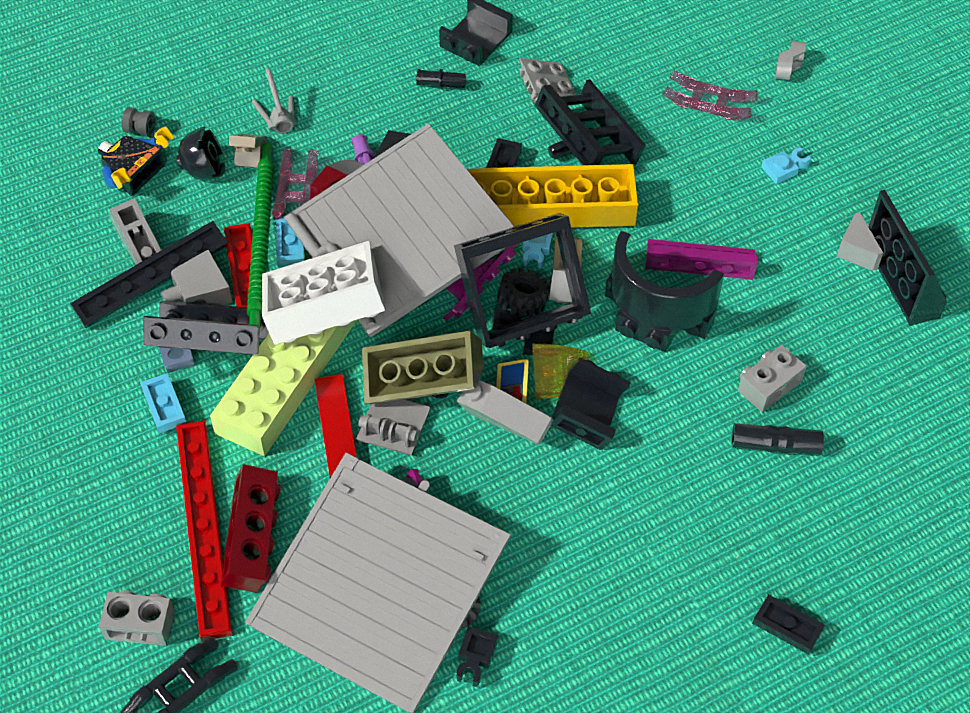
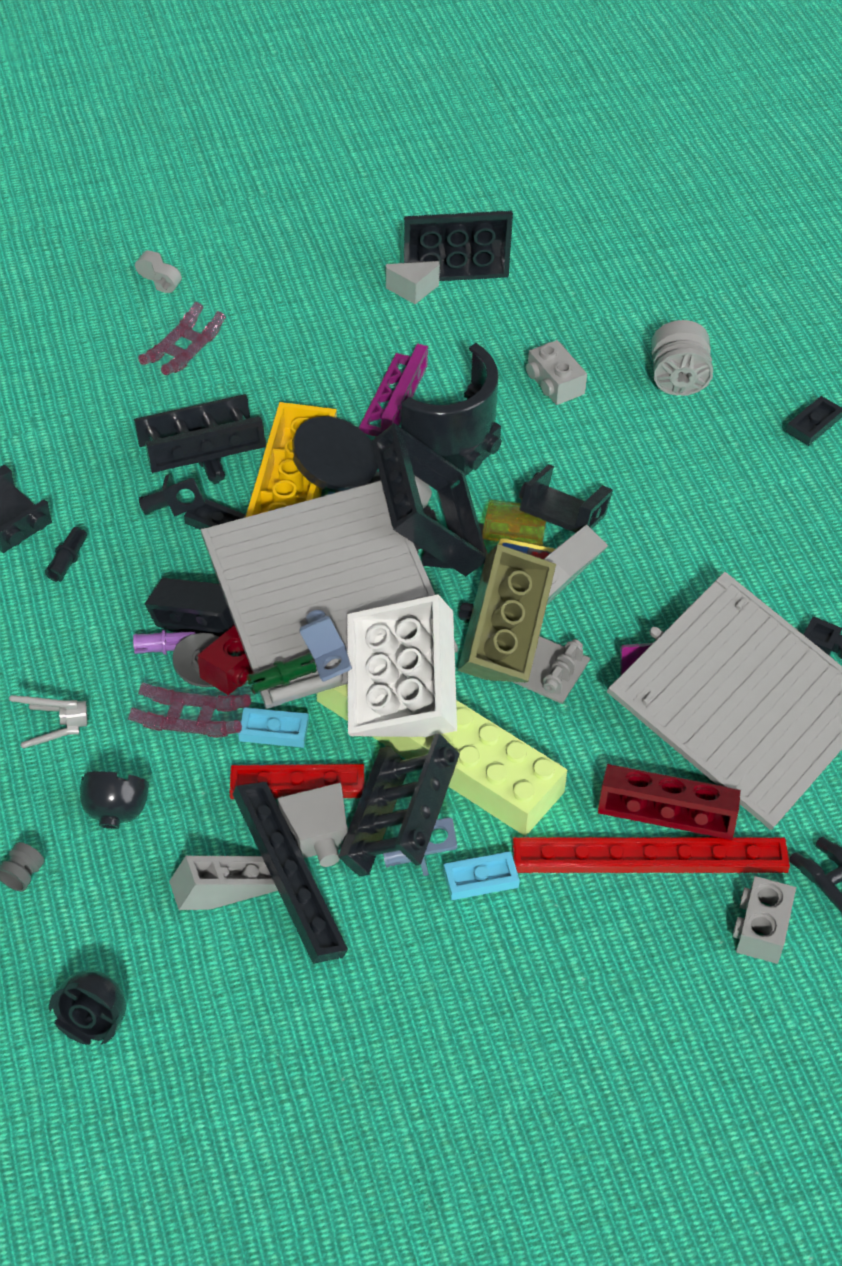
camera: 80 degrees left, 5 degrees down
(24, 183) = (88, 1007): none -> black cylinder
(133, 161) = (92, 877): torso -> none
(247, 149) = (108, 750): slope -> none
(260, 234) = (146, 740): green hose -> none
(306, 214) = (281, 673): none -> dark green pin
(334, 419) = (547, 718): red tile -> none
(336, 229) = (325, 644): none -> sand blue bracket
(515, 124) = (171, 497): none -> black bracket
(540, 73) = (95, 459): light grey hinge -> none
(588, 204) = (334, 454): none -> black tile
(777, 439) = (623, 385): black axle -> none
(782, 167) = (293, 311): medium azure plate -> none
(822, 478) = (681, 358): none -> light grey wheel

